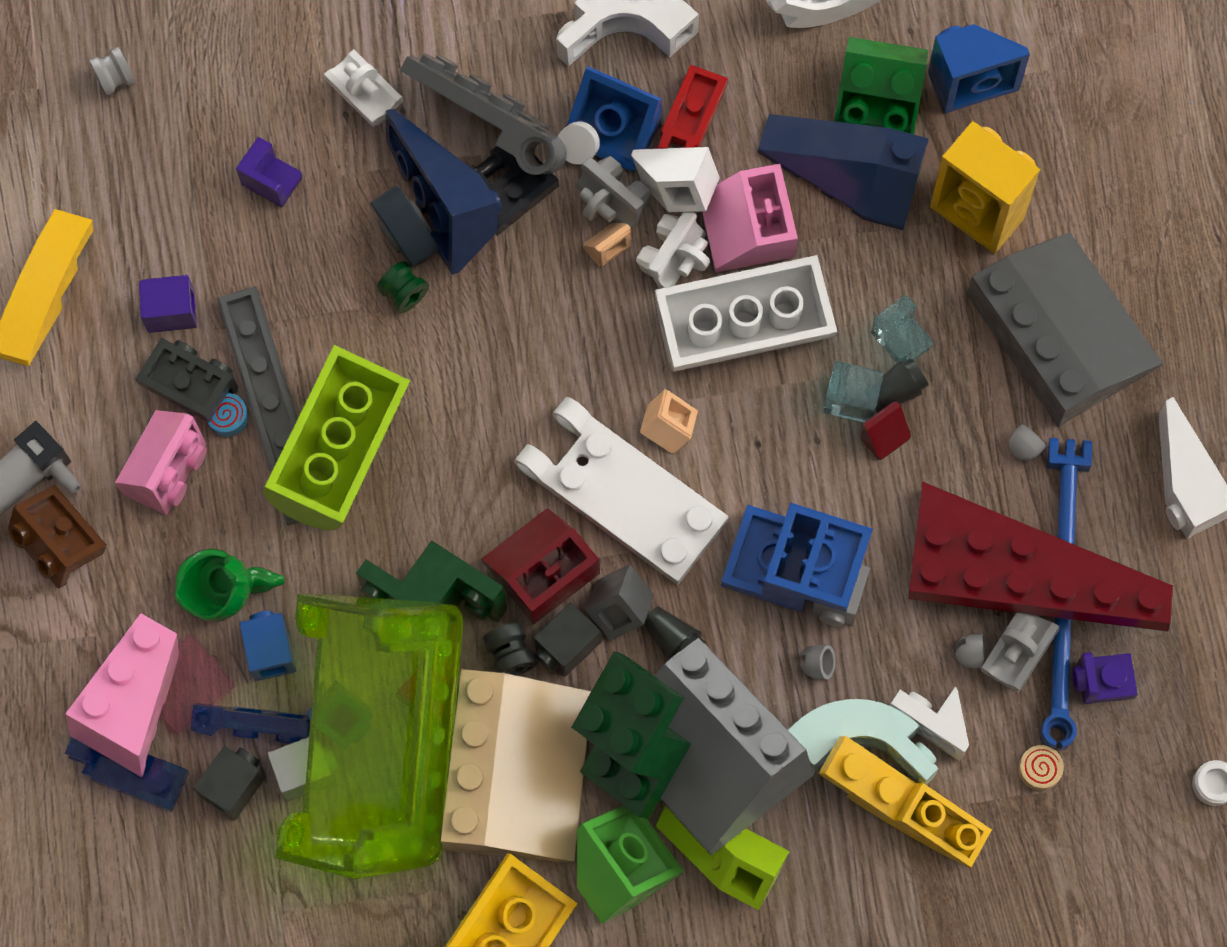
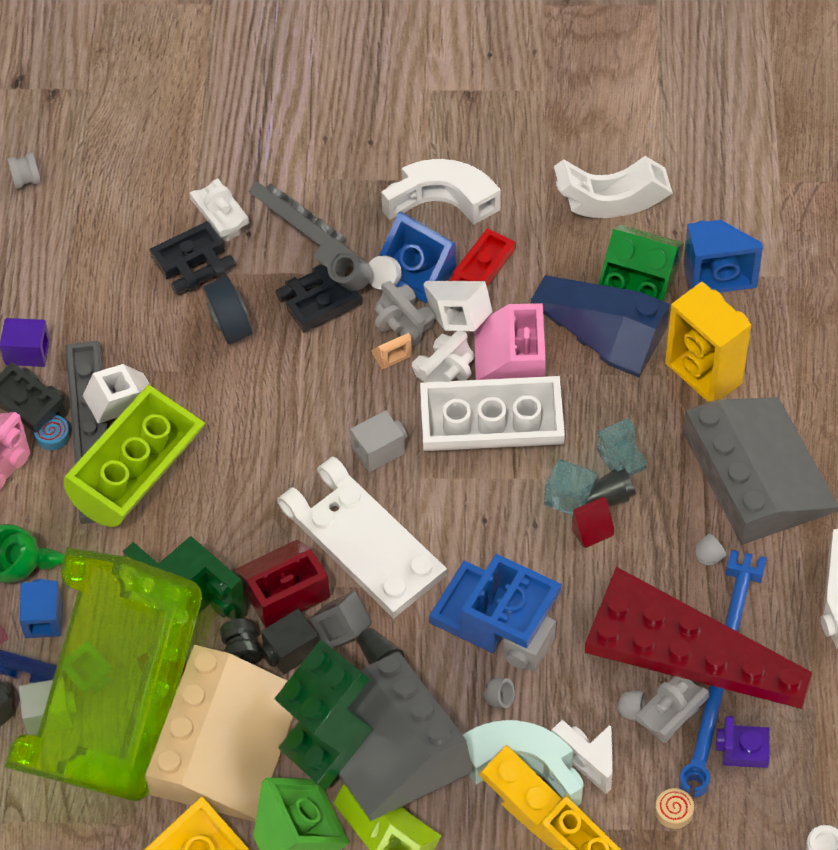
camera: 10 degrees right, 15 degrees down
(266, 174) = (126, 261): dark purple panel -> none
(296, 357) = (113, 391): none -> white slope
(335, 150) = (188, 250): none -> black plate
(402, 286) = (216, 357): dark green wheel -> none
(445, 188) = (268, 291): dark blue wedge -> none
(617, 366) = (378, 440): none -> light grey brick
(669, 421) = (413, 490): light nougat slope -> none

